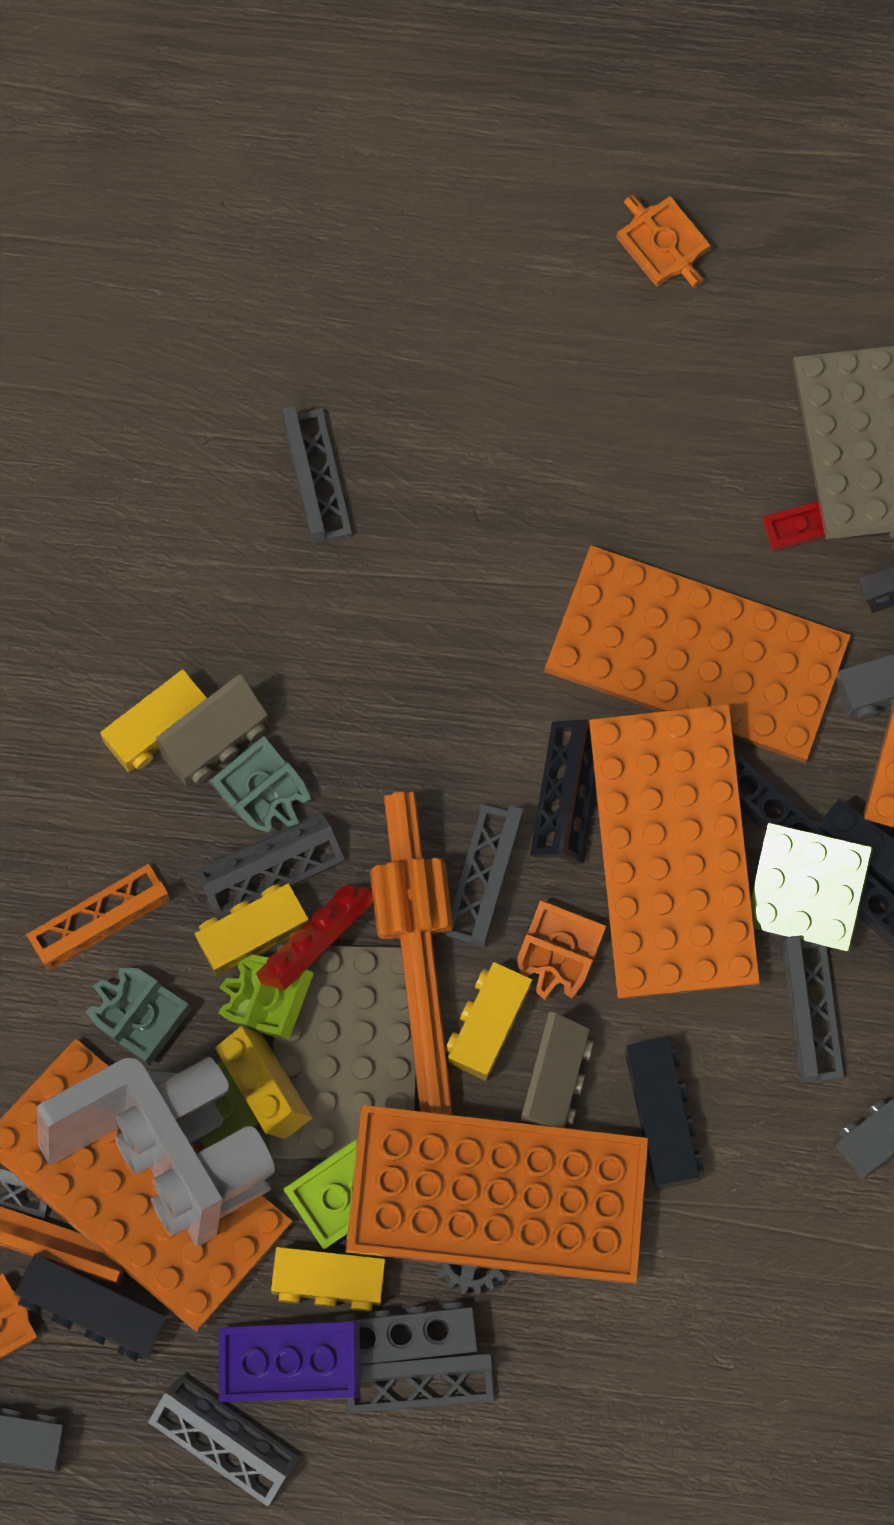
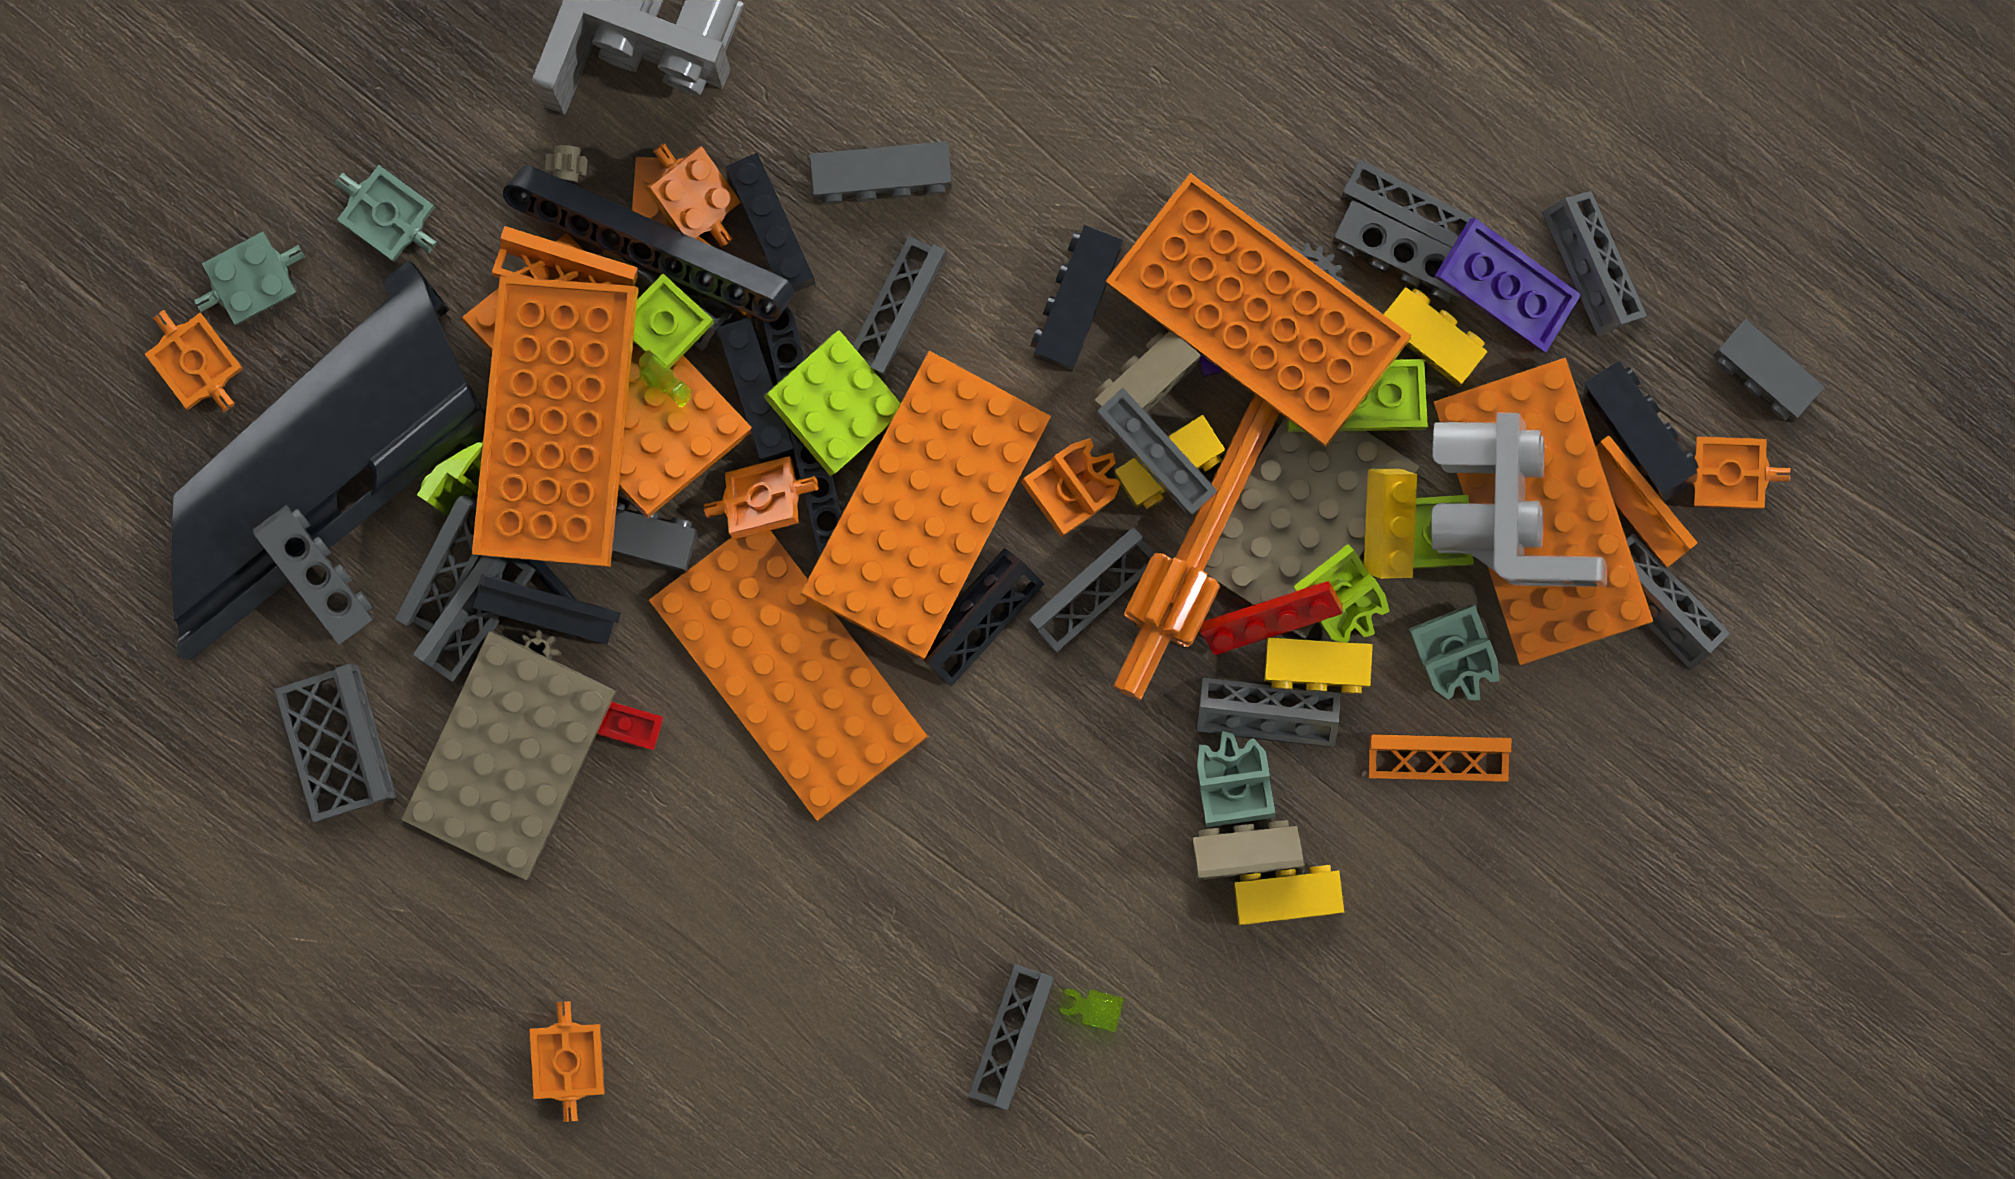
camera: 145 degrees left, 10 degrees up
(259, 540) = (1099, 1009): none -> clear neon green plate
(506, 1006) = (1155, 452): none -> dark grey fence
(816, 770) = (761, 497): none -> orange plate

